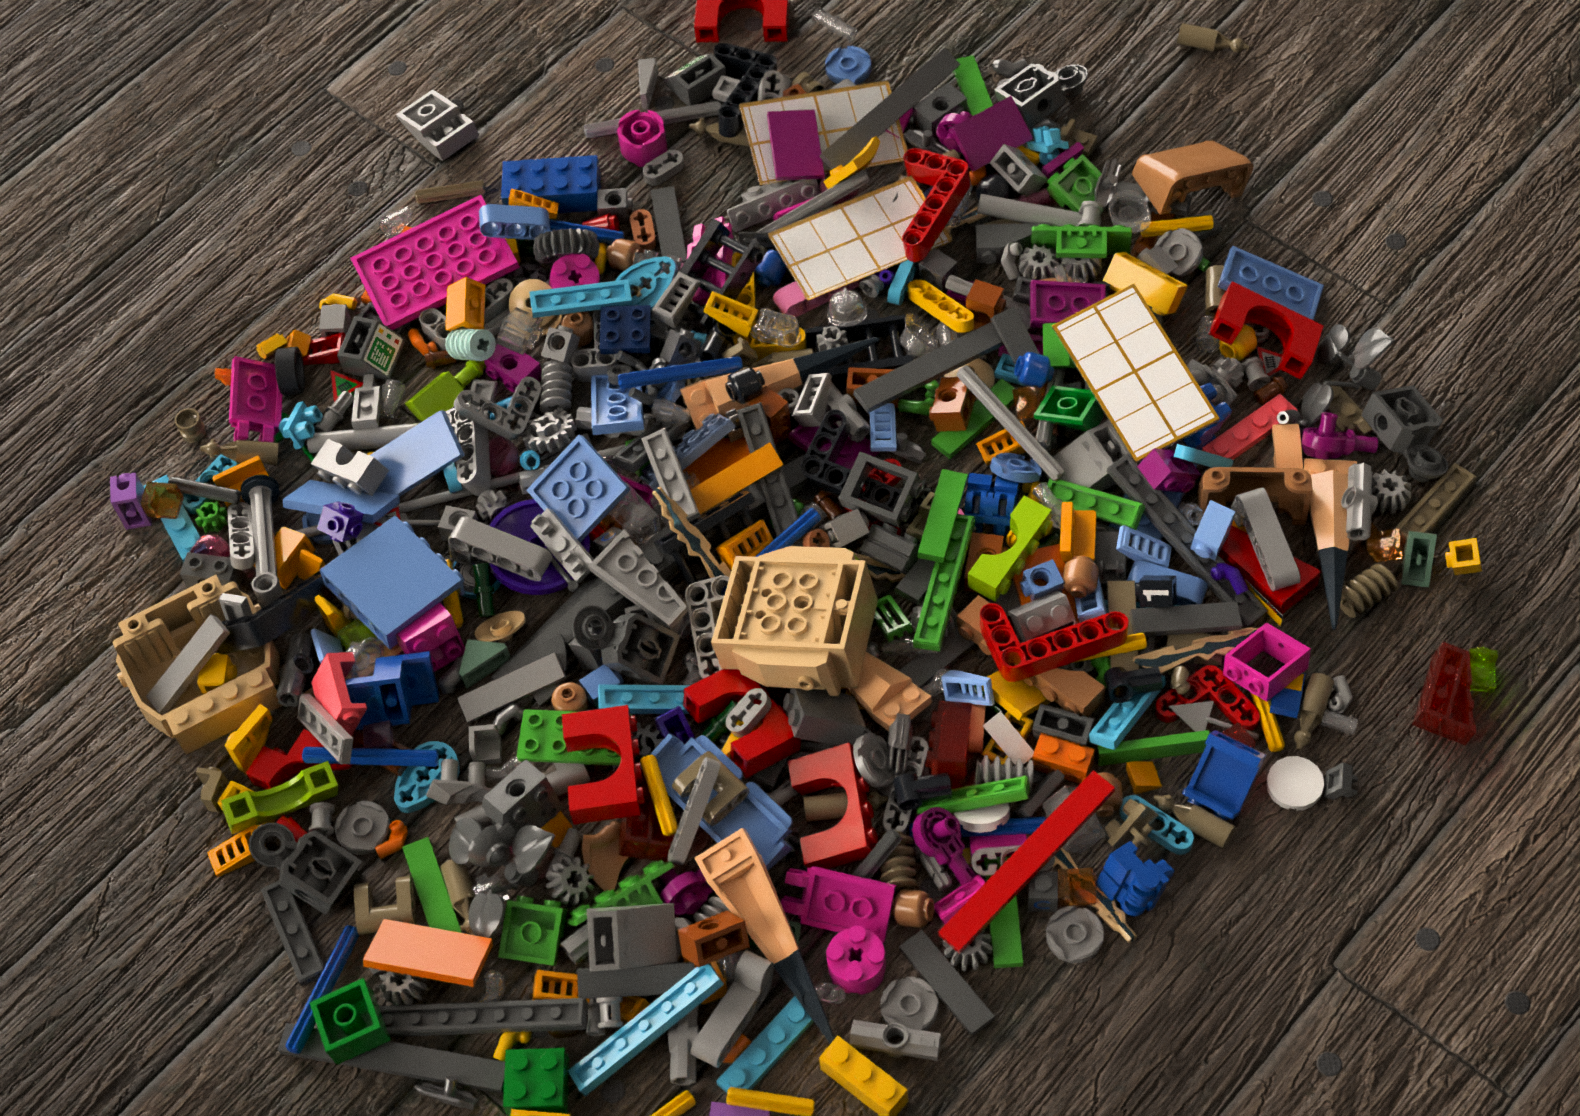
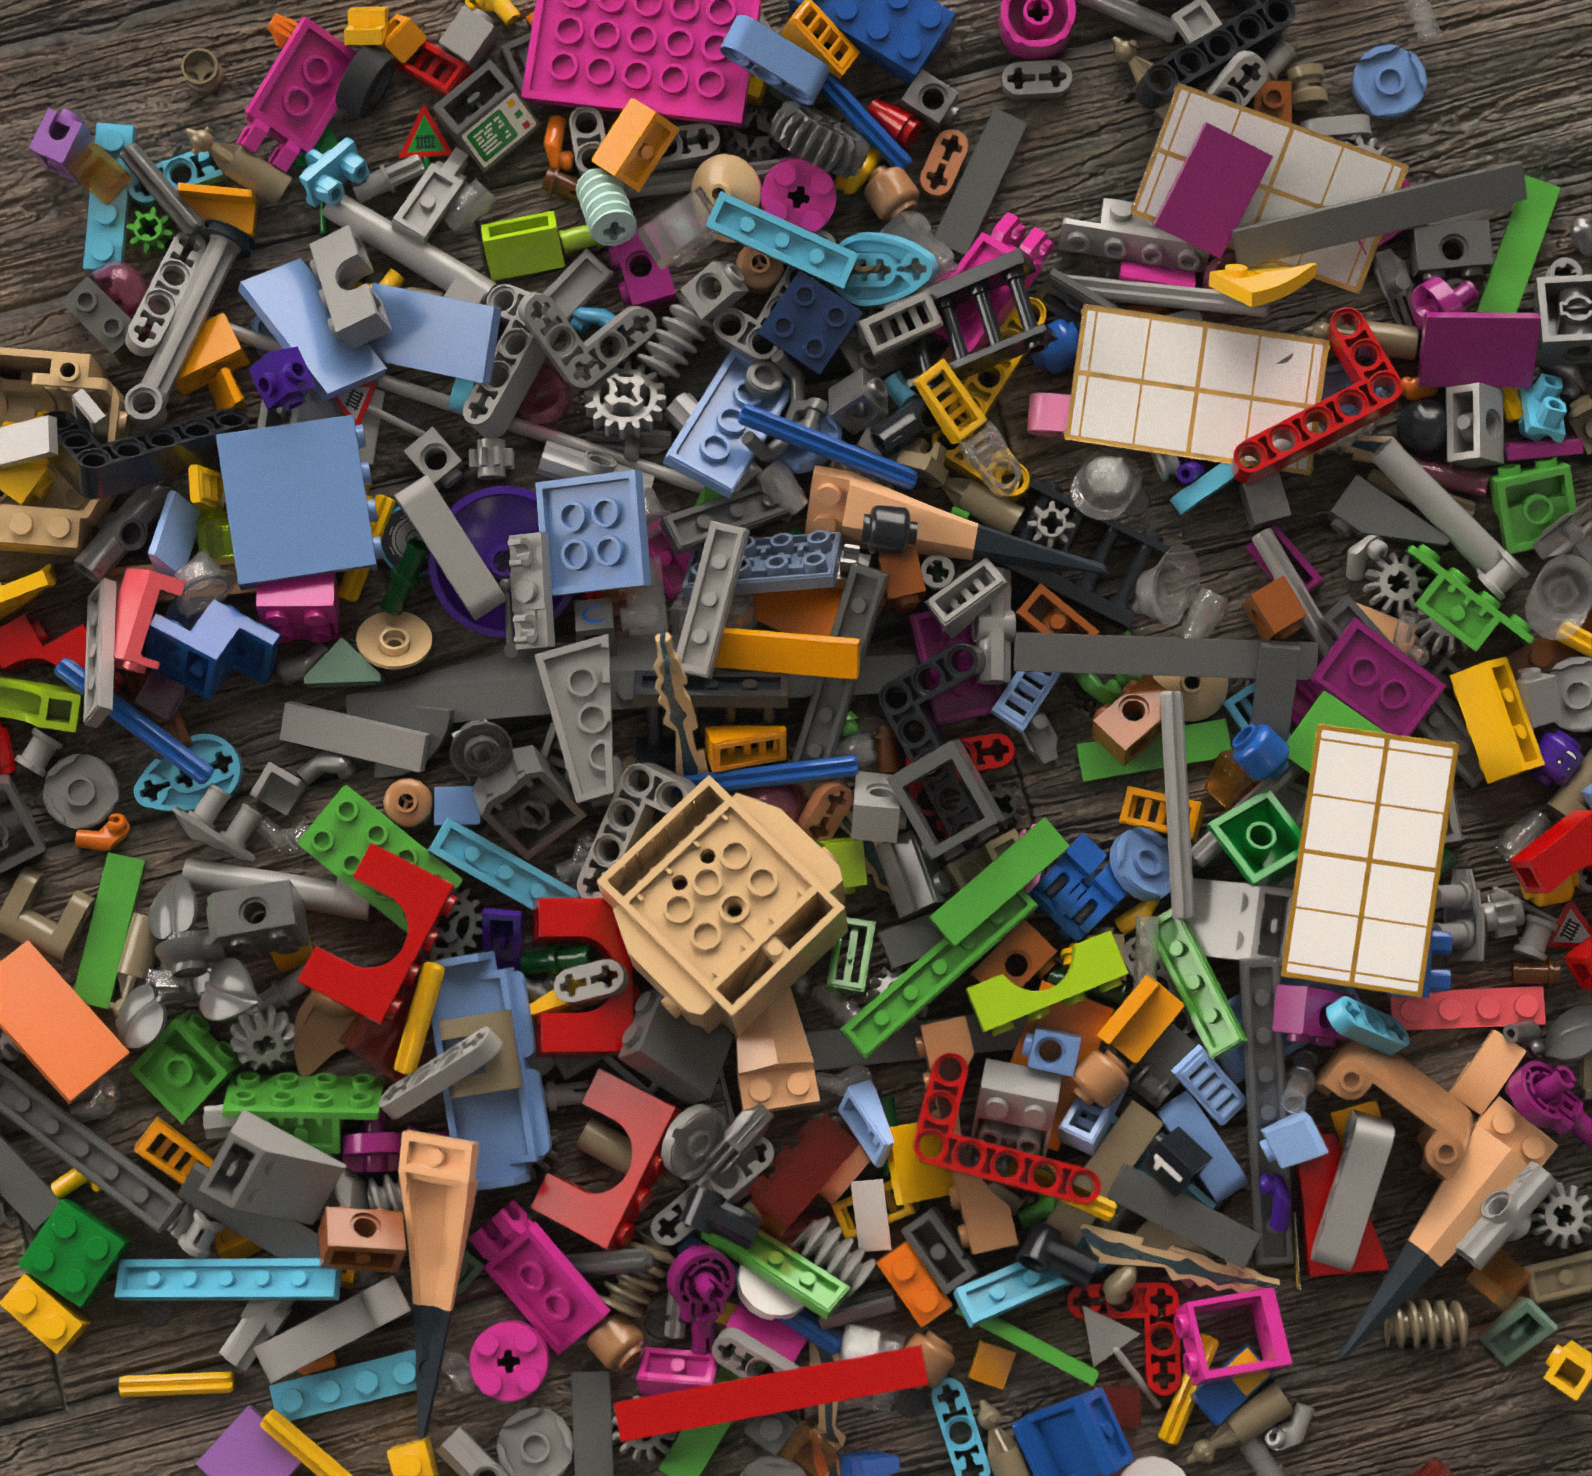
camera: 30 degrees right, 25 degrees up
(529, 460) = (572, 432): medium azure axle -> none
(941, 306) = (1224, 563): yellow beam -> none
(1134, 828) = (909, 1425): dark tan hips -> none
(1197, 286) = (1560, 758): none -> dark purple head

